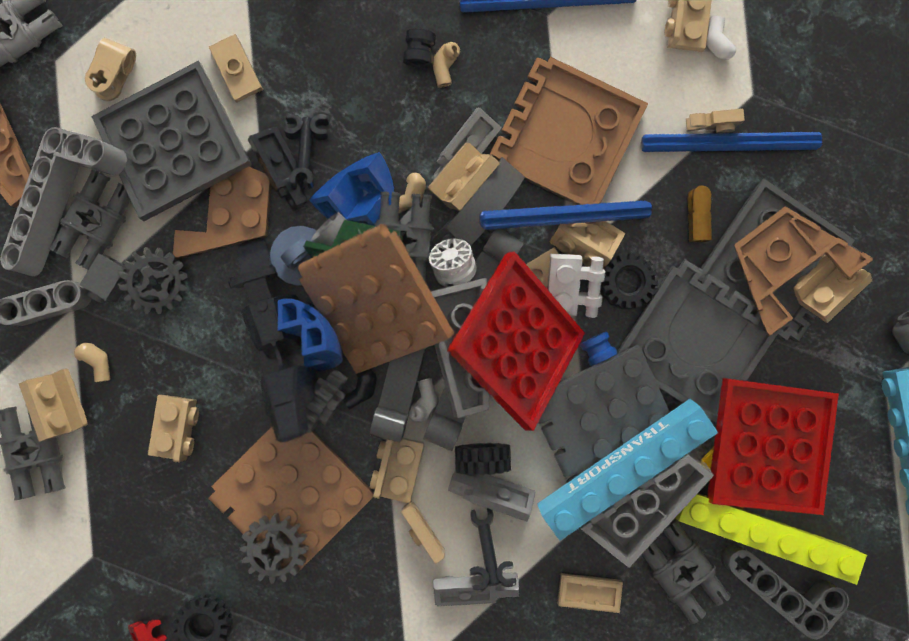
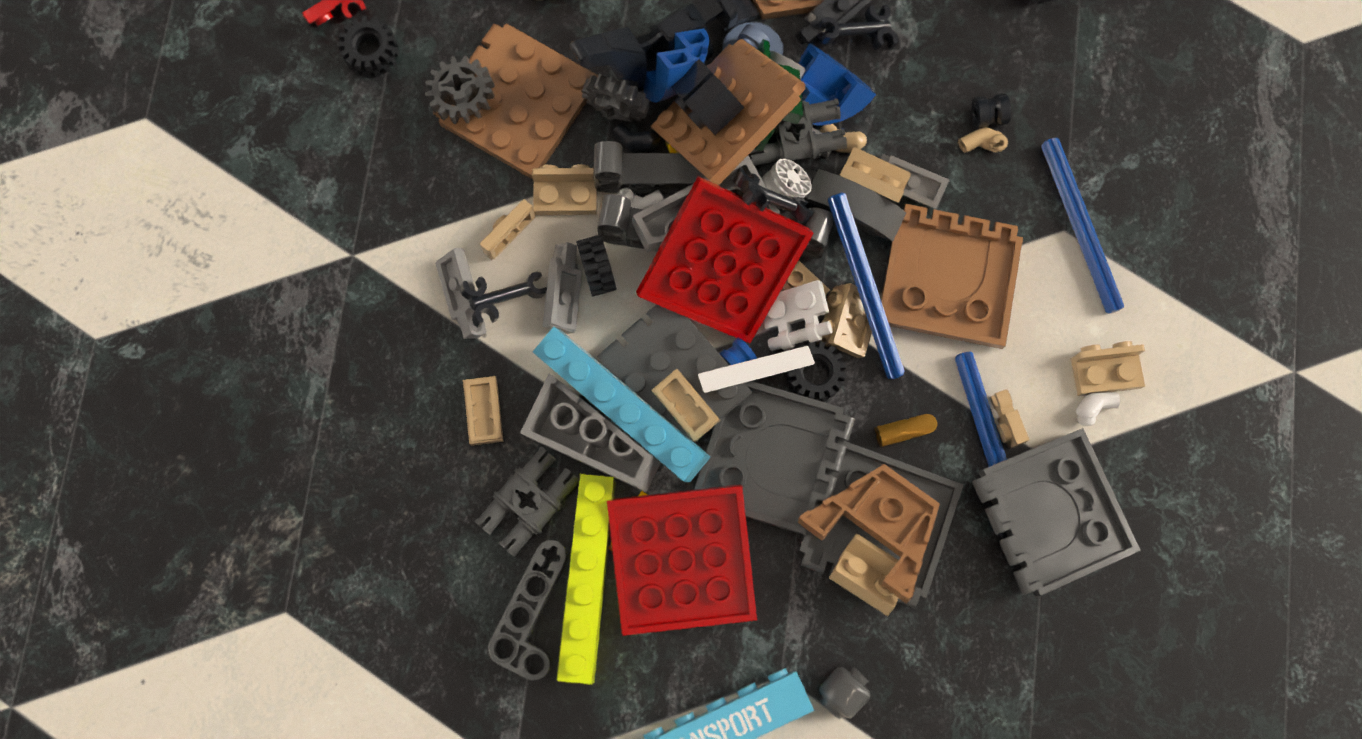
camera: 70 degrees right, 10 degrees down
(358, 322) = (706, 98): none -> black piece
(473, 292) = (764, 196): none -> black bar
(621, 337) = (756, 369): none -> white sticker
(641, 410) = (685, 405): none -> tan plate
(810, 106) = (1055, 513): none -> dark grey hinge

